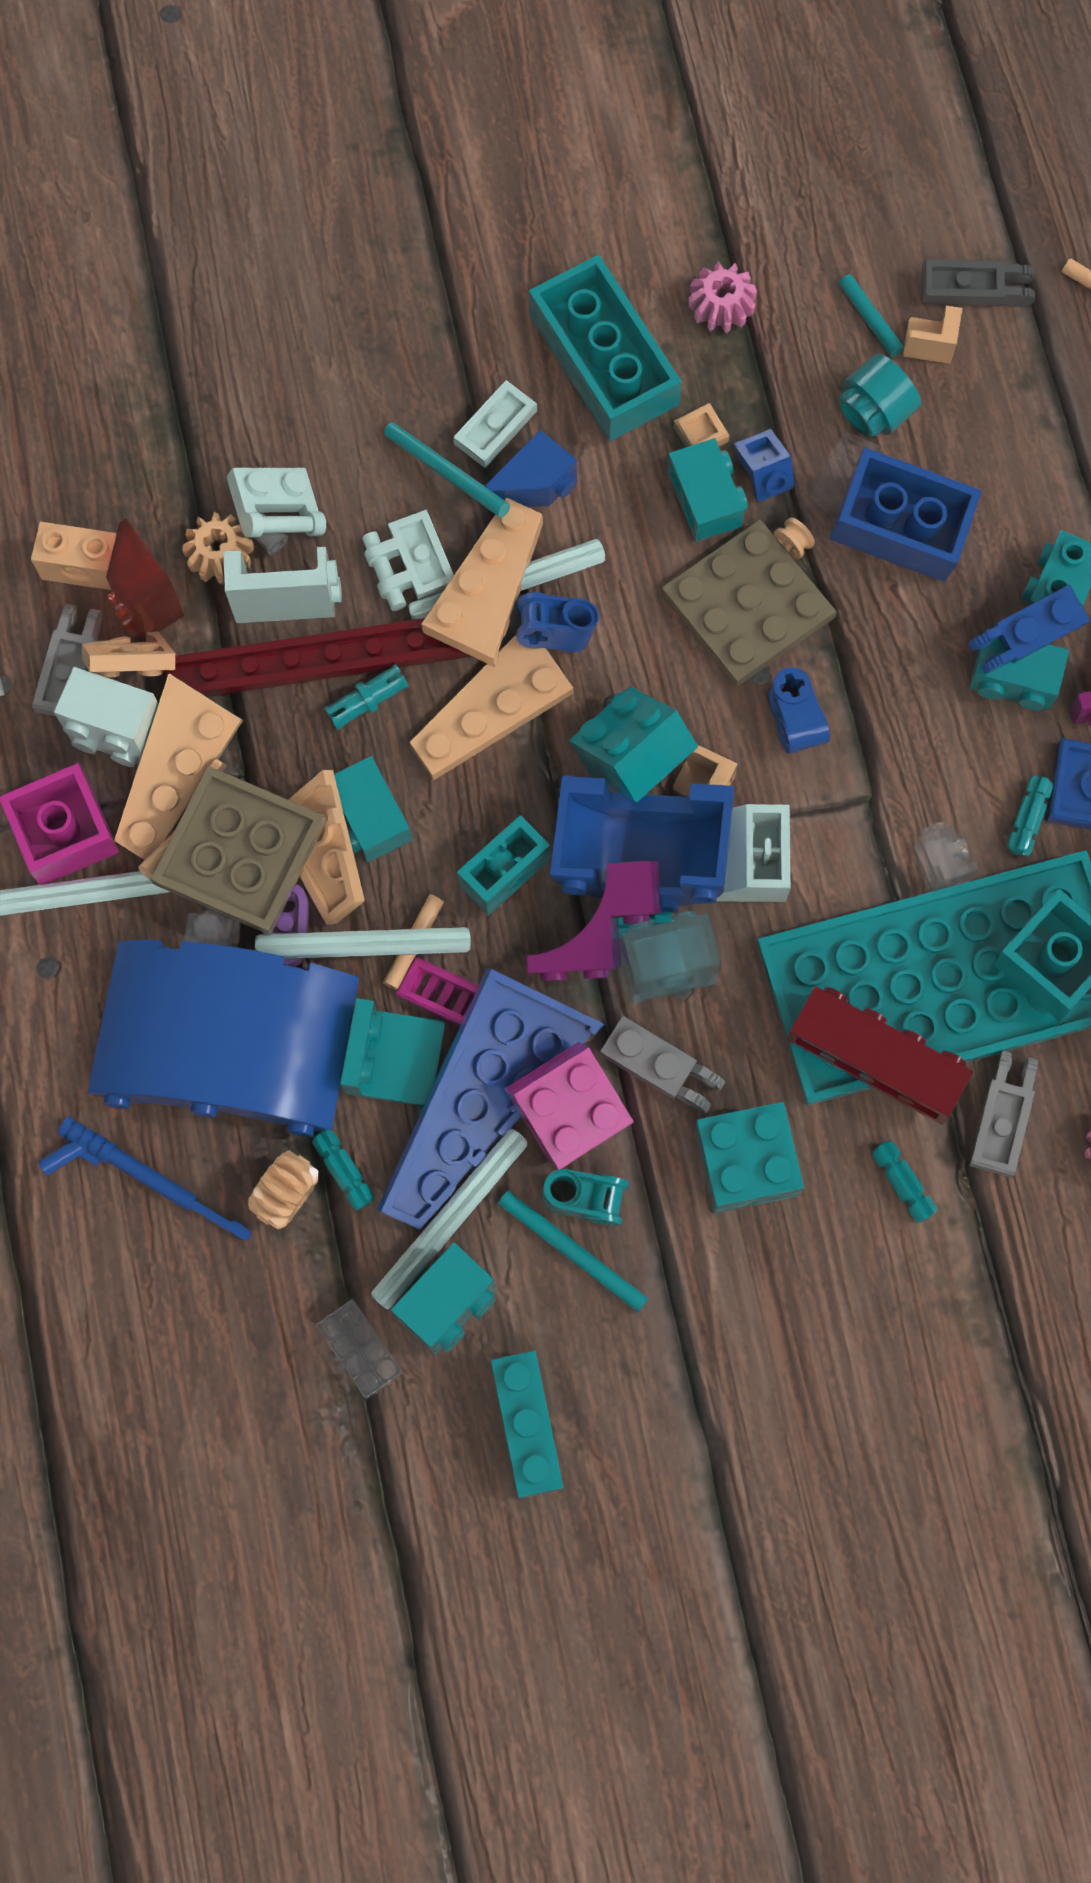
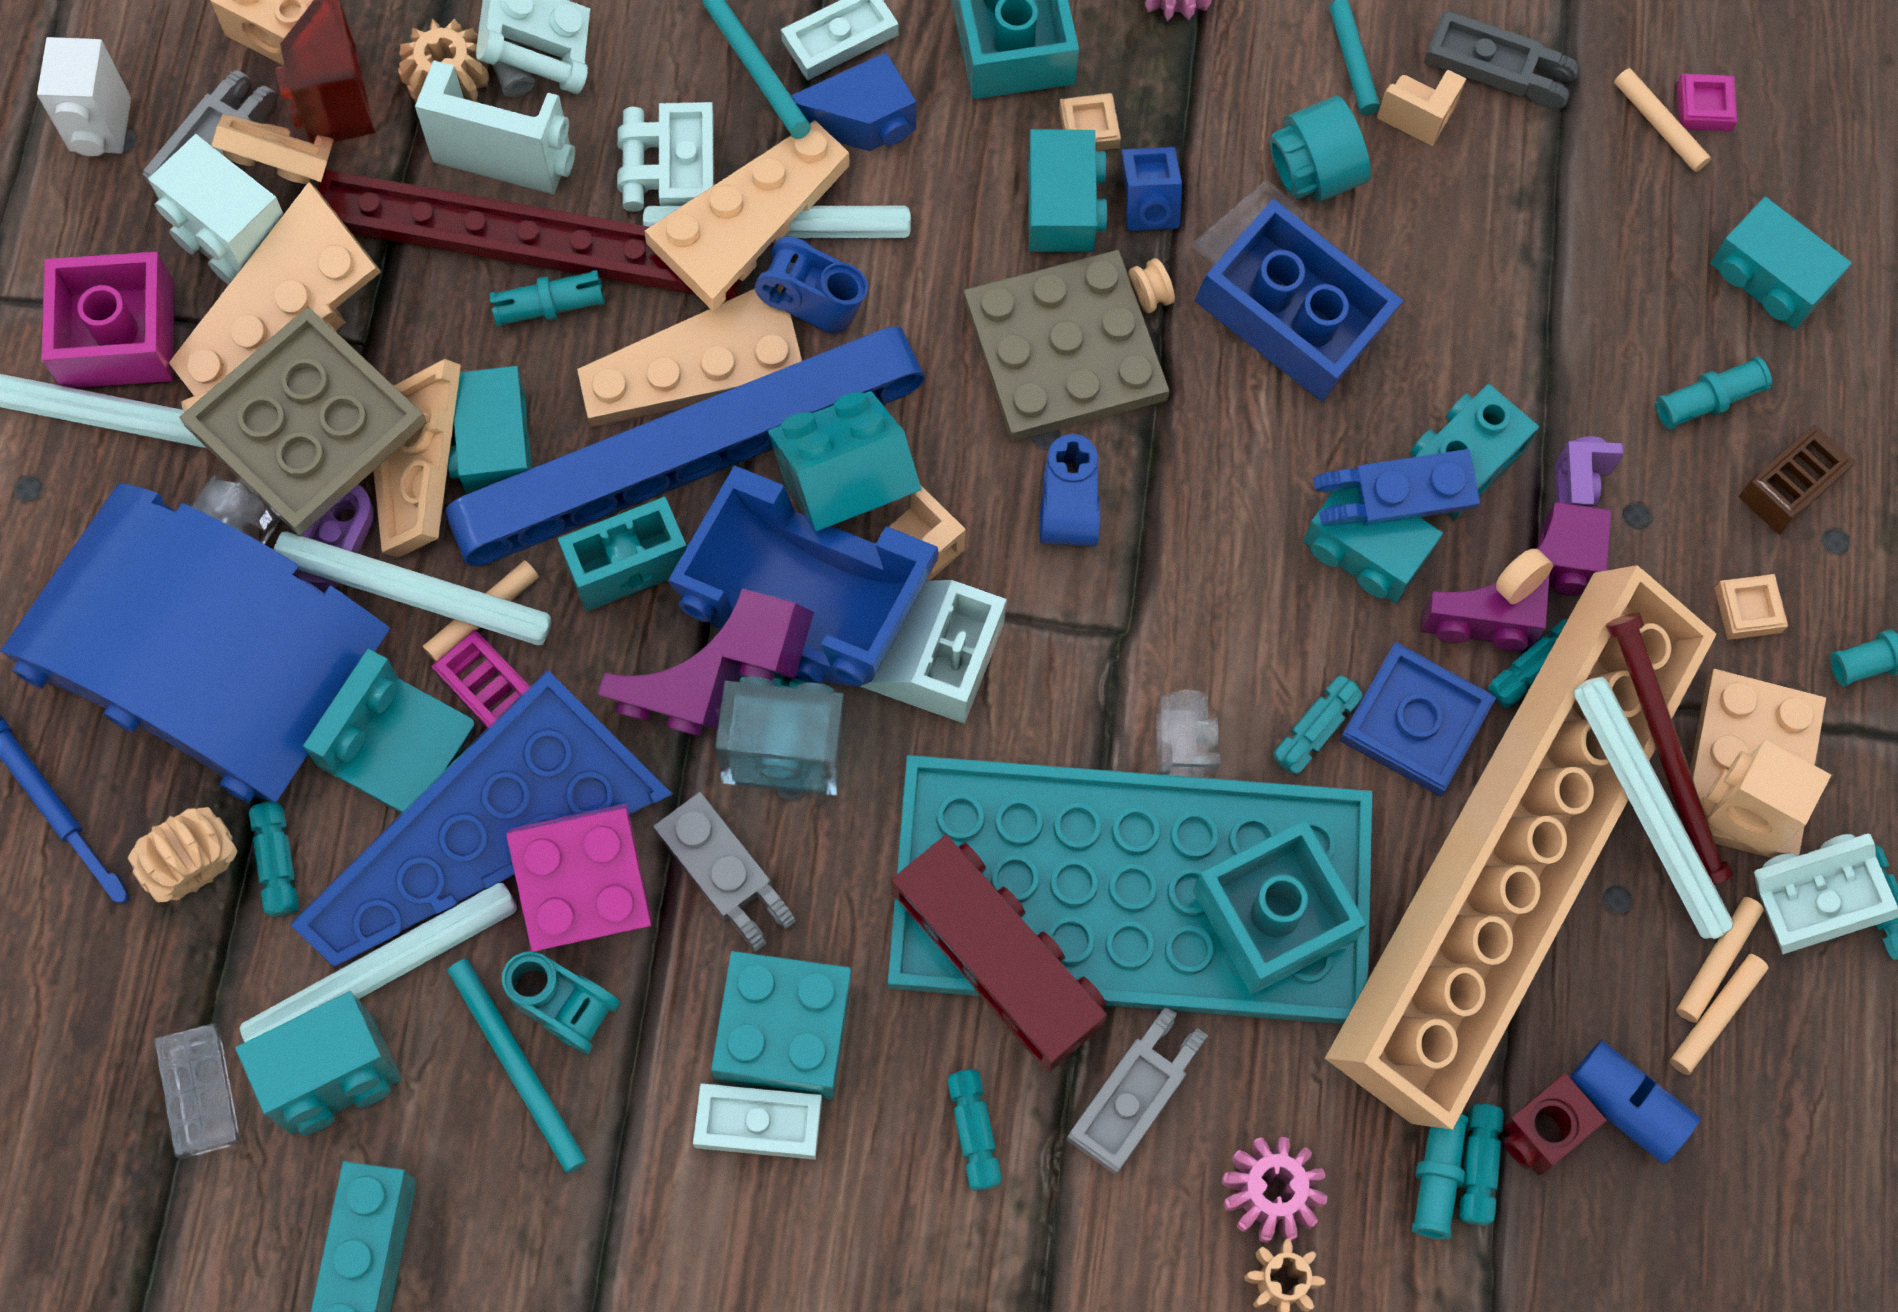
camera: 15 degrees right, 5 degrees down
(506, 774) = (673, 448): none -> blue beam
(756, 1229) = (757, 1121): none -> light aqua plate

